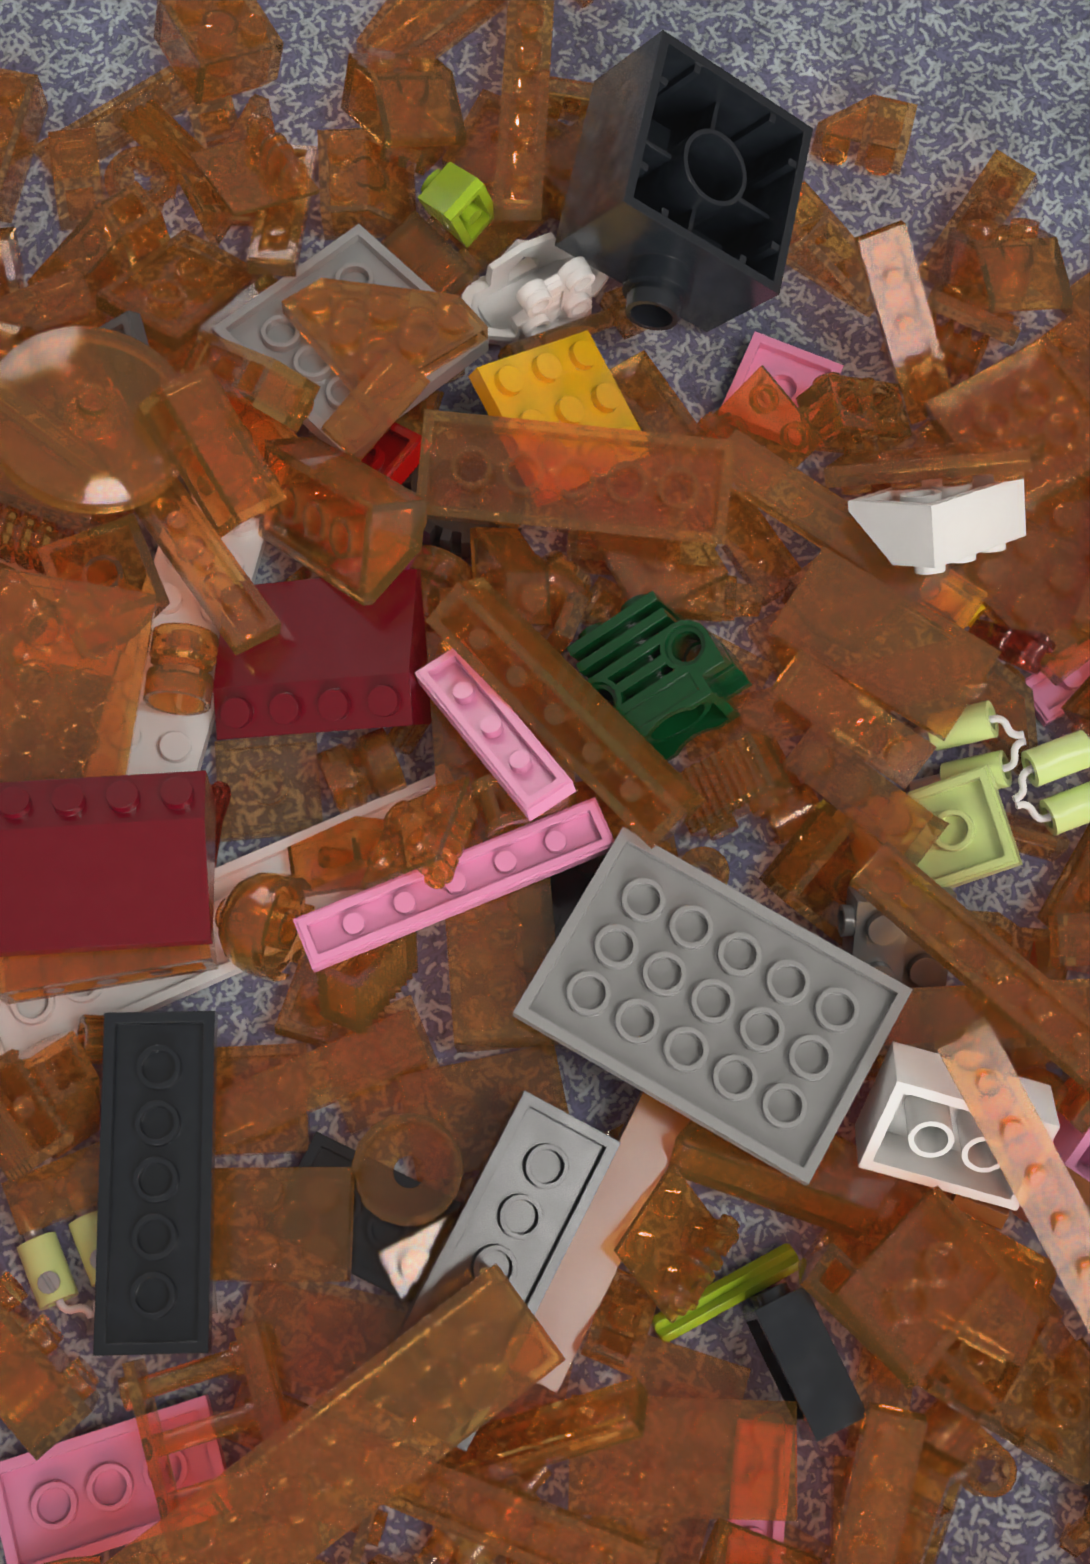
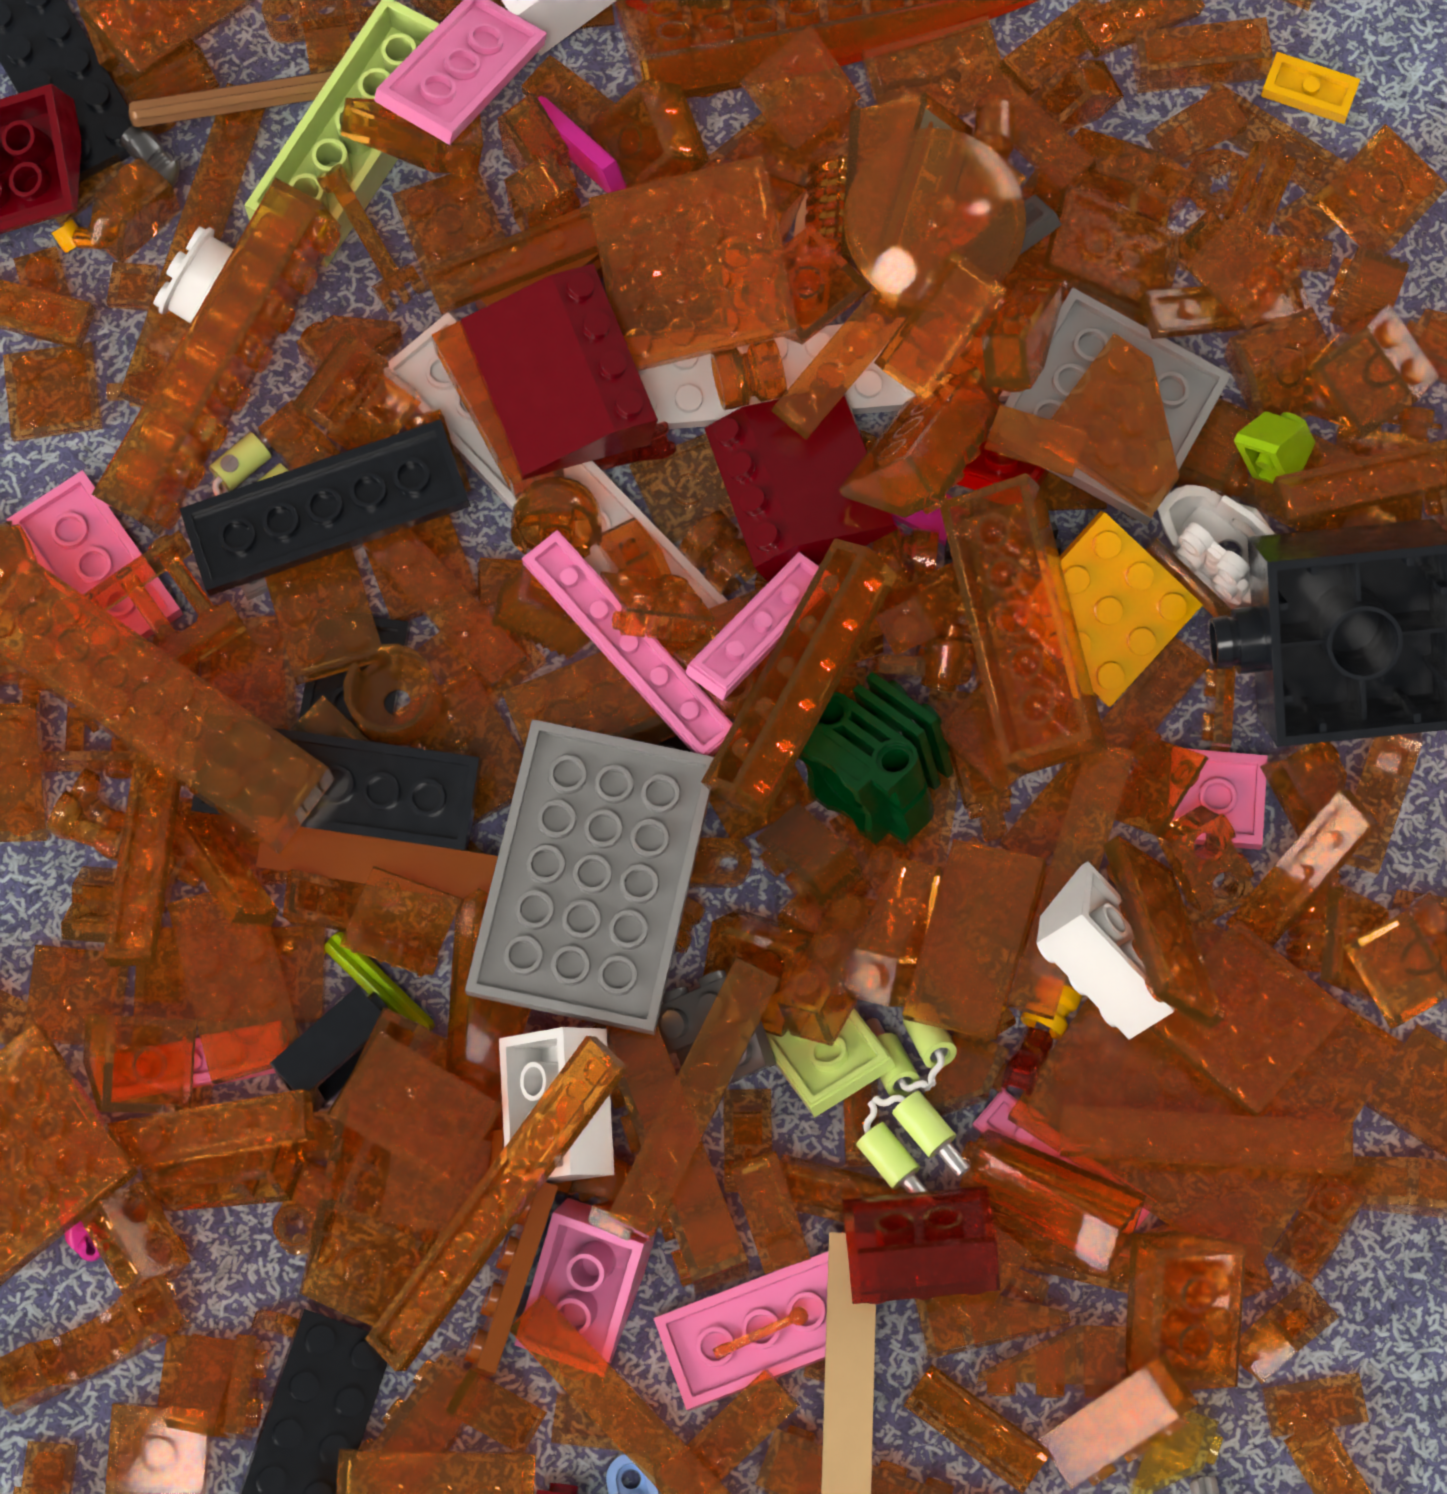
camera: 80 degrees right, 0 degrees up
(80, 67) = (1310, 87): none -> yellow plate
(316, 77) = (1365, 284): none -> clear orange brick
(466, 90) = (1415, 421): none -> clear orange plate
(704, 360) = (1218, 724): none -> clear orange plate
(808, 308) = (1305, 780): none -> clear orange slope

